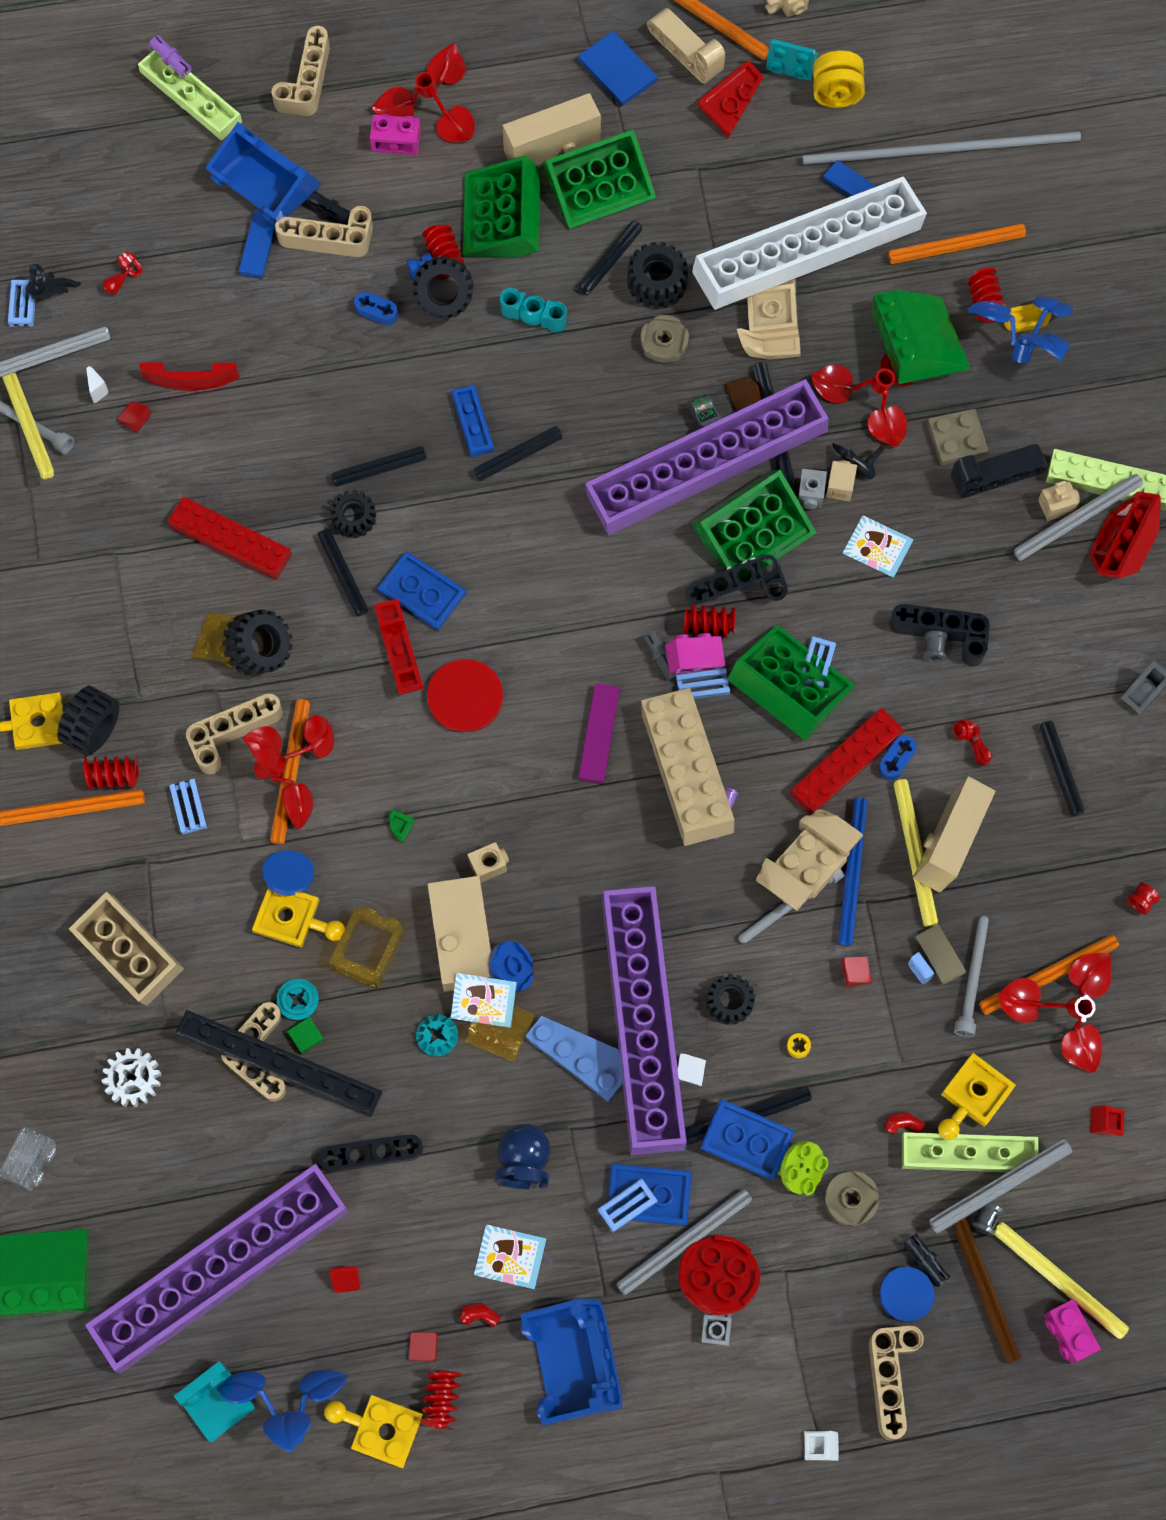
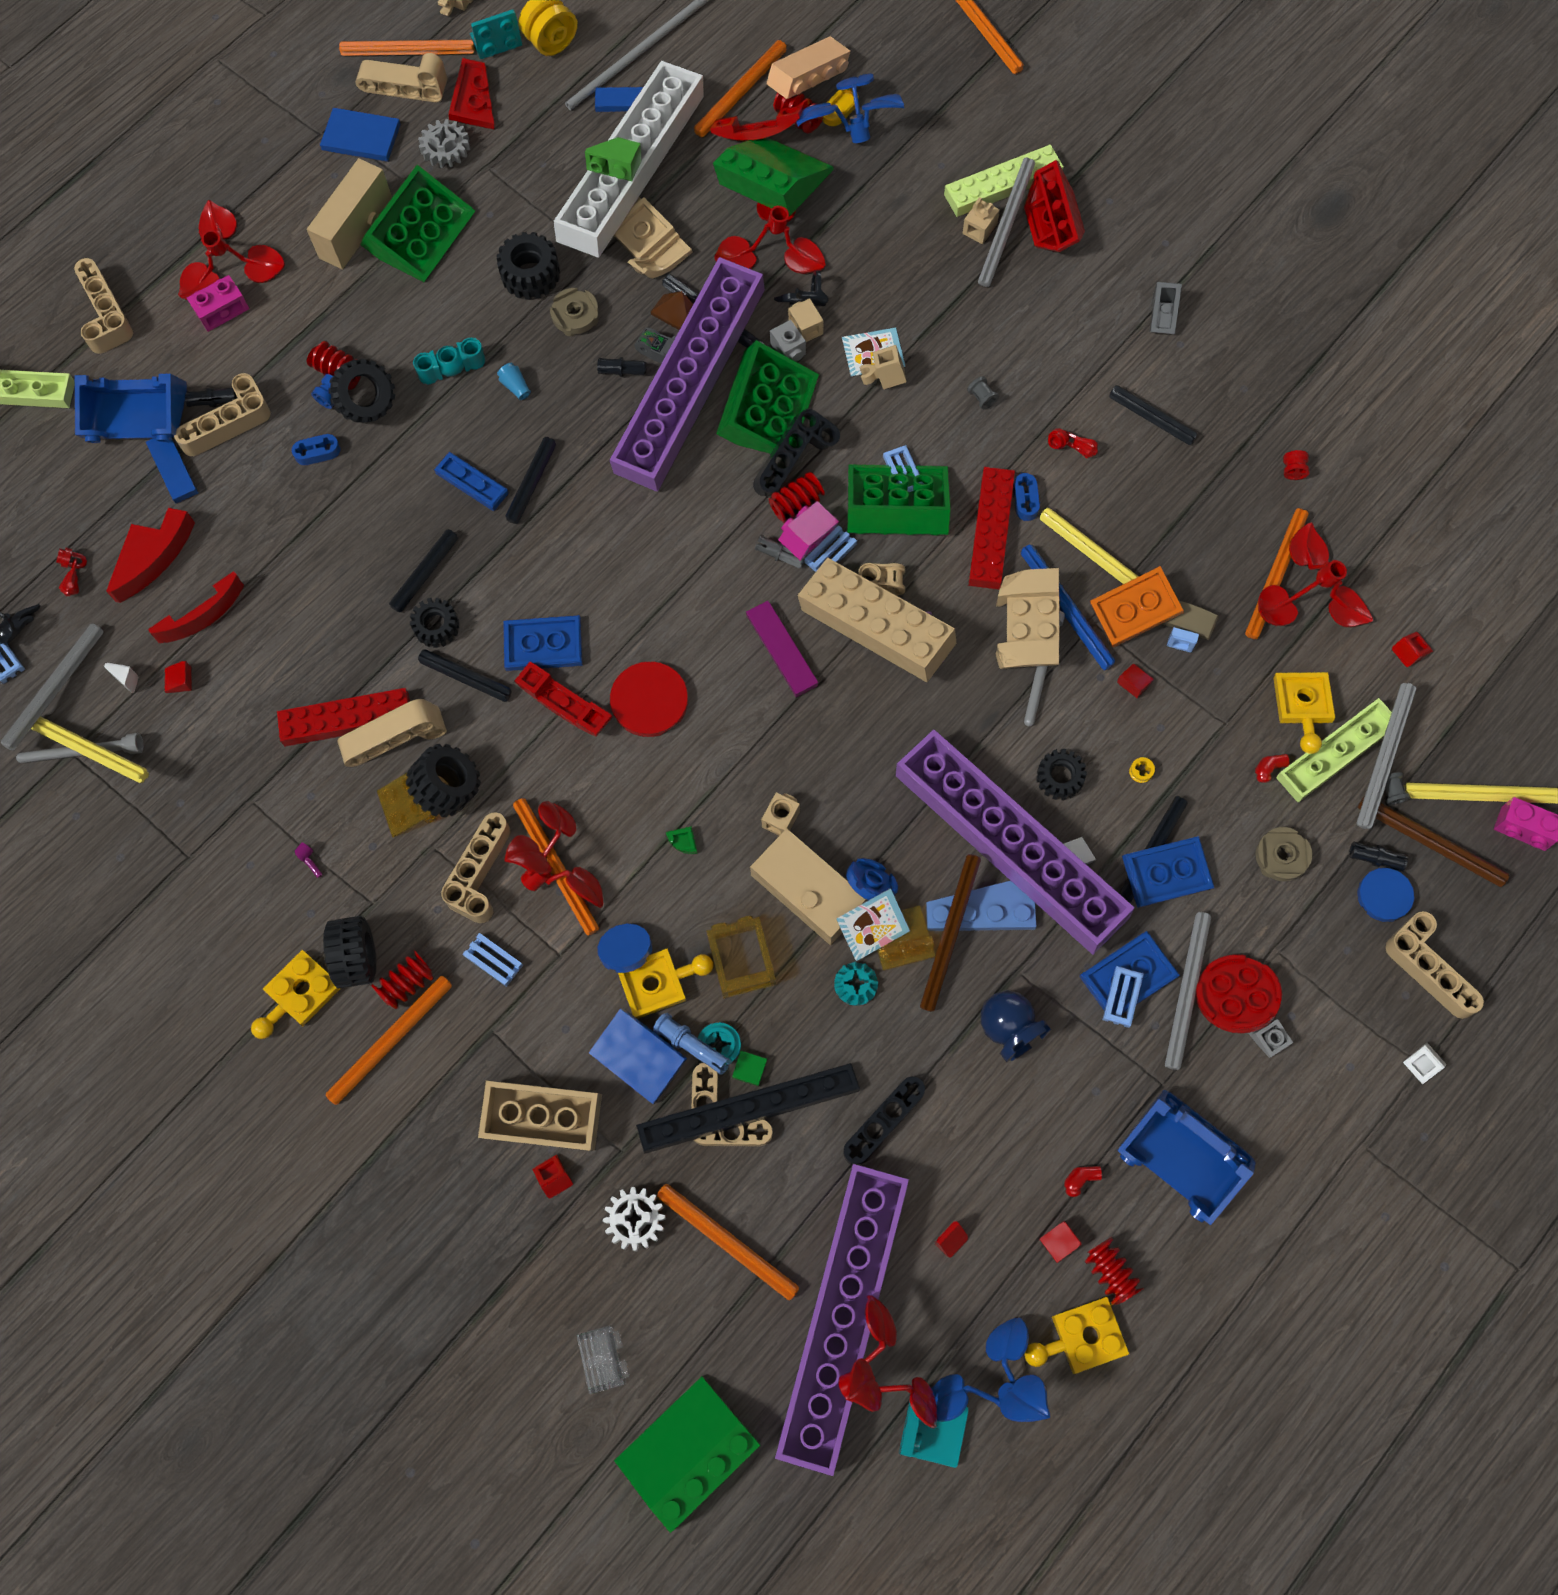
camera: 35 degrees left, 0 degrees up
(100, 1000) = (552, 1176): none -> red slope
(117, 619) = (303, 853): none -> magenta hand
(181, 1318) = (860, 1383): none -> red plant
(184, 1149) = (728, 1242): none -> orange axle
(187, 302) = (148, 554): none -> red slope
(232, 960) = (637, 1055): none -> blue tile
(253, 575) = (391, 730): none -> tan beam
(274, 973) = (681, 1037): none -> medium blue pin
(502, 209) = (357, 302): green slope -> none
(510, 1256) = (1063, 1113): sticker -> none
(537, 1052) = (950, 933): none -> reddish brown axle
(570, 361) = (513, 380): none -> dark azure cone
(610, 257) = (477, 280): black axle -> none
(663, 412) = (621, 367): none -> black axle
(676, 124) = (444, 143): none -> light grey gear
(724, 737) = (884, 574): none -> tan piece
(788, 237) = (615, 158): none -> bright green slope
(803, 1167) = (1229, 859): lime plate -> none
(872, 567) = (887, 368): none -> tan brick
(905, 913) = (1136, 606): none -> orange plate
(919, 276) = (731, 129): none -> red slope
(939, 618) = (947, 388): black beam -> none
(953, 834) = (1124, 518): tan brick -> none
(957, 436) = (864, 228): dark tan plate -> none
(965, 1024) = (1250, 656): light grey piece -> none
(978, 477) = (905, 244): black beam -> none
(1021, 267) = (808, 67): none -> light nougat brick

